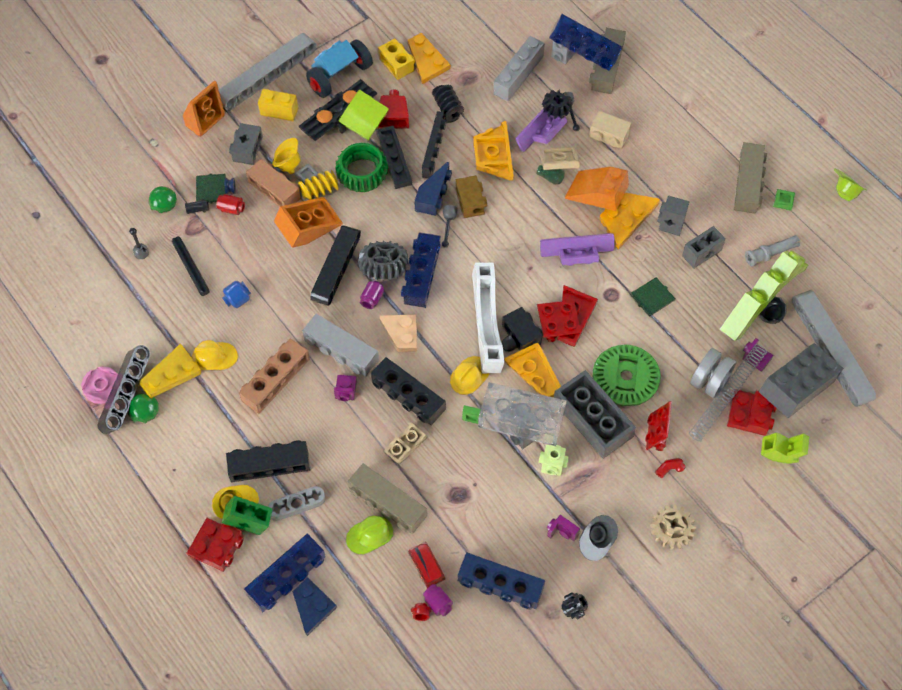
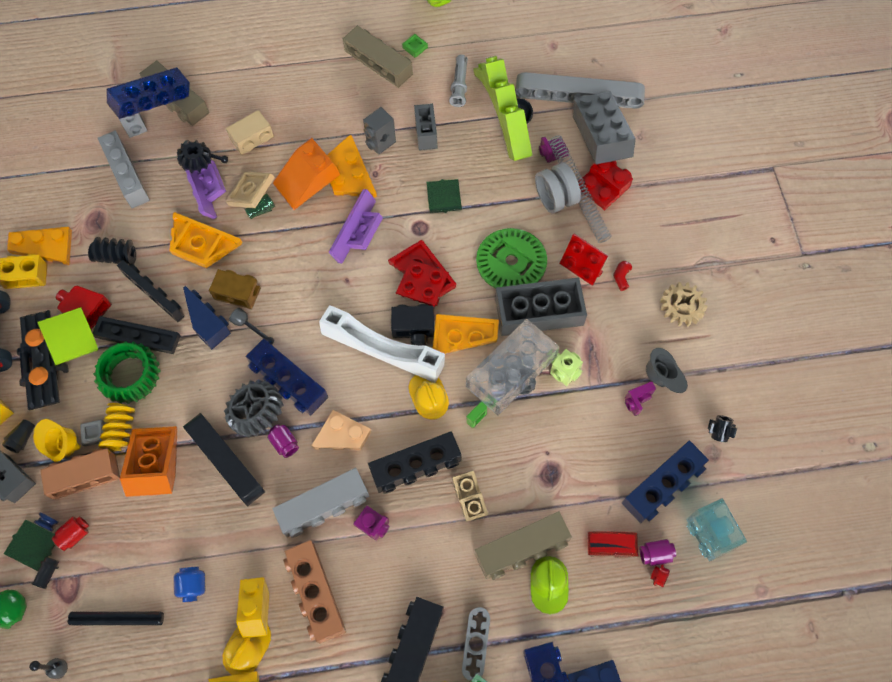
camera: 60 degrees left, 5 degrees up
(240, 340) = (253, 607): none -> yellow brick
(277, 133) = (18, 437): none -> black cone
(479, 632) = (715, 530): none -> clear light blue brick
(784, 449) = (657, 175): lime brick -> none

